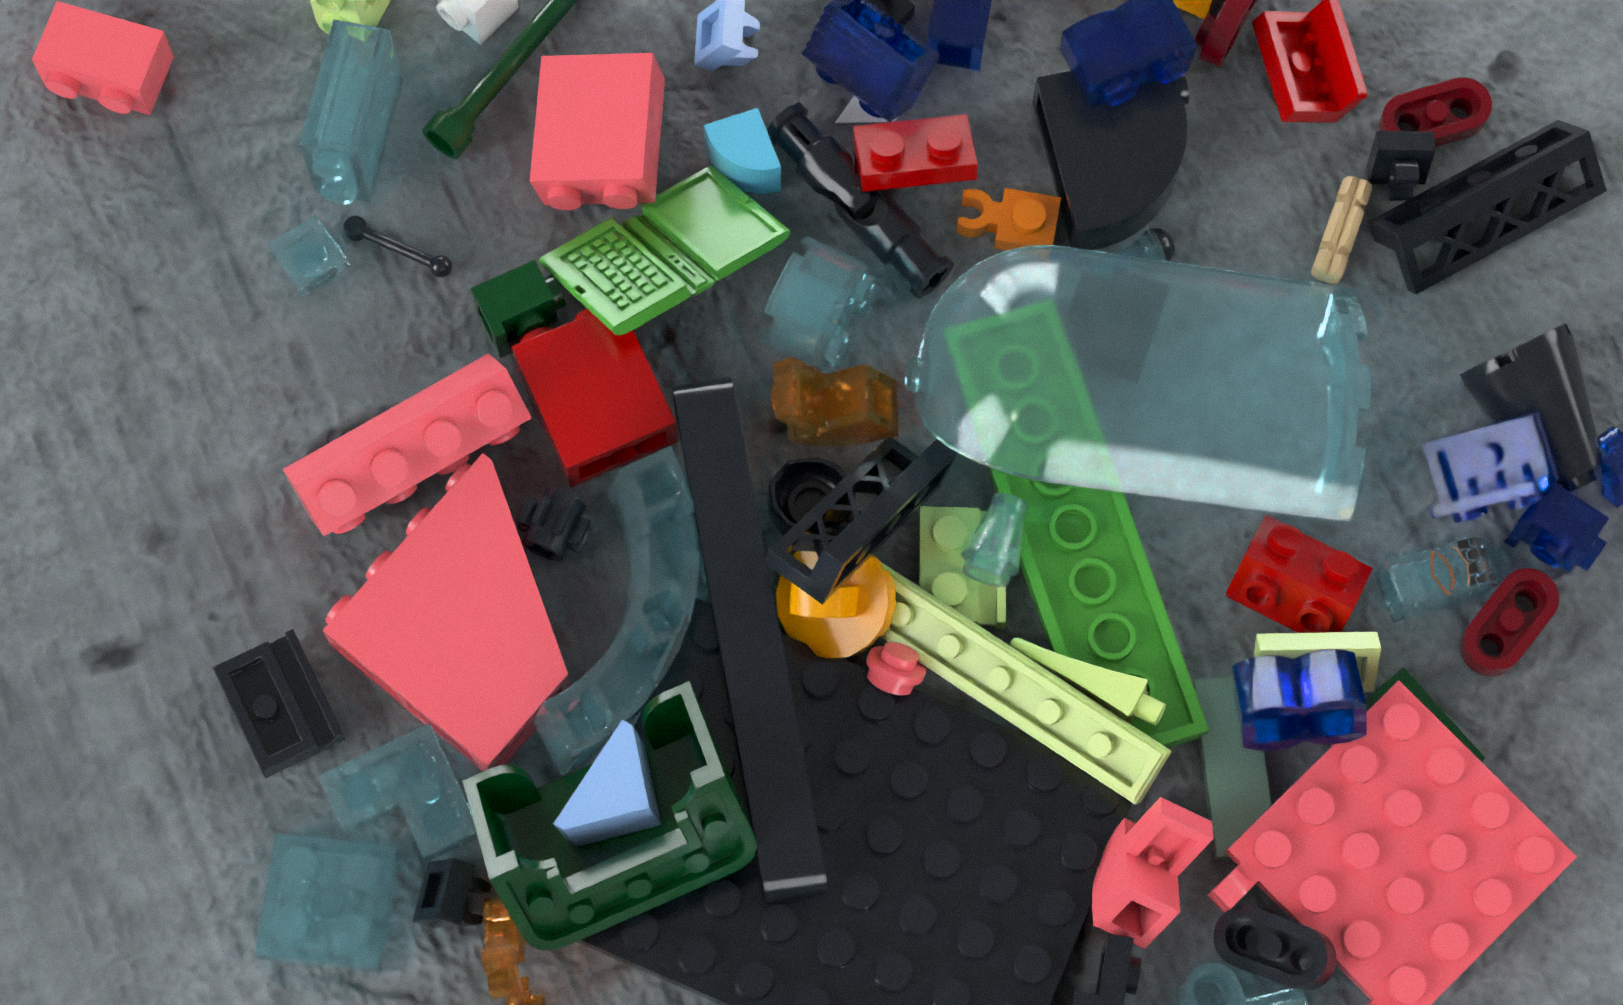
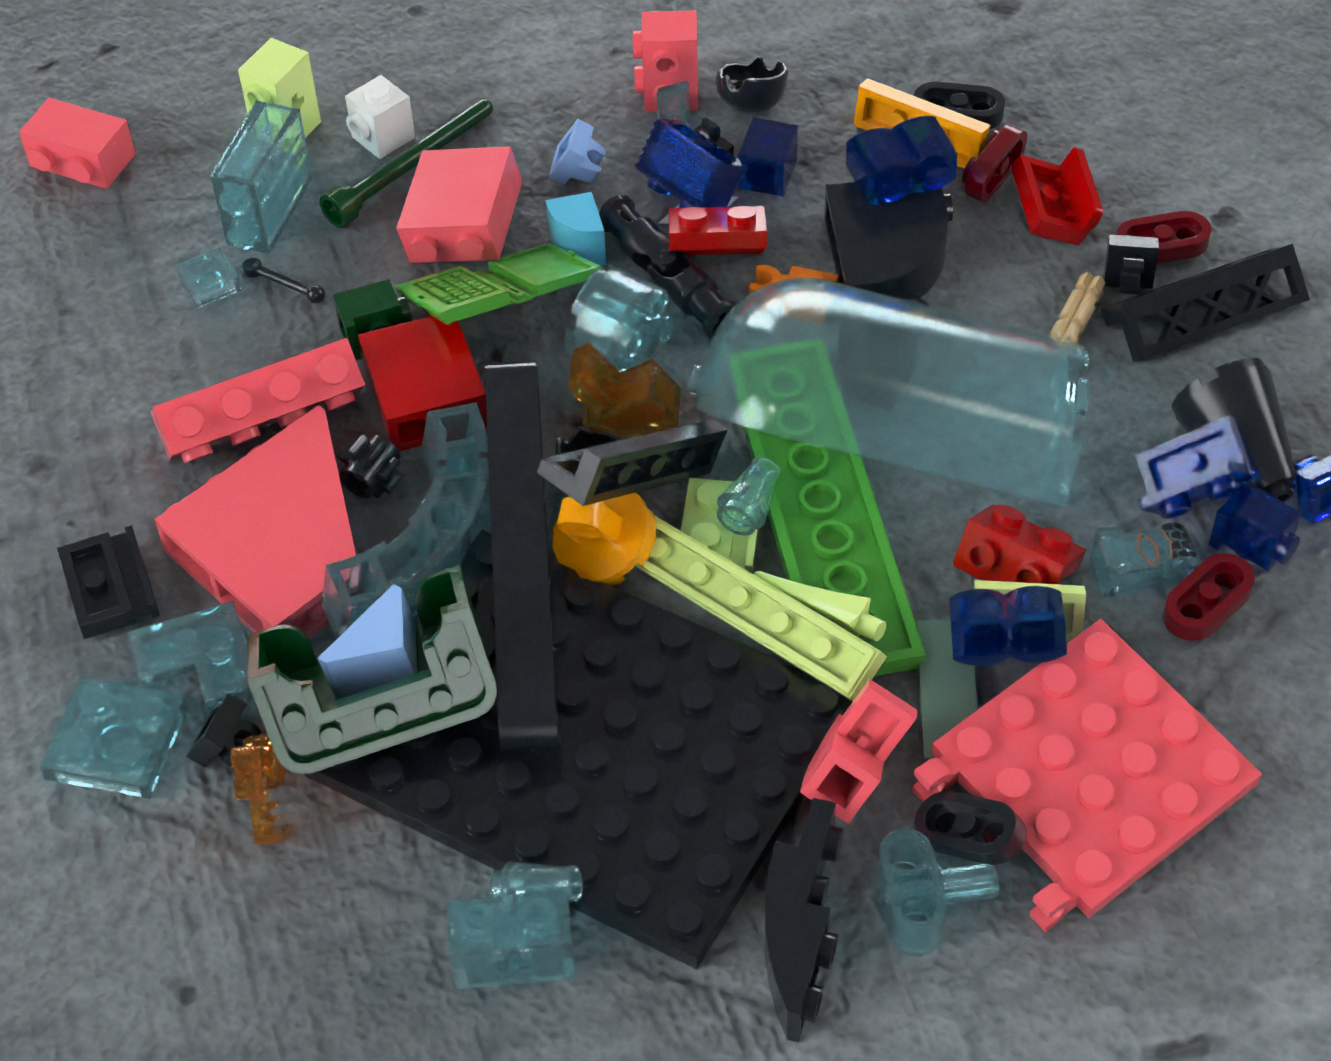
camera: 10 degrees right, 20 degrees down
(895, 668) = (648, 588): coral plate -> none

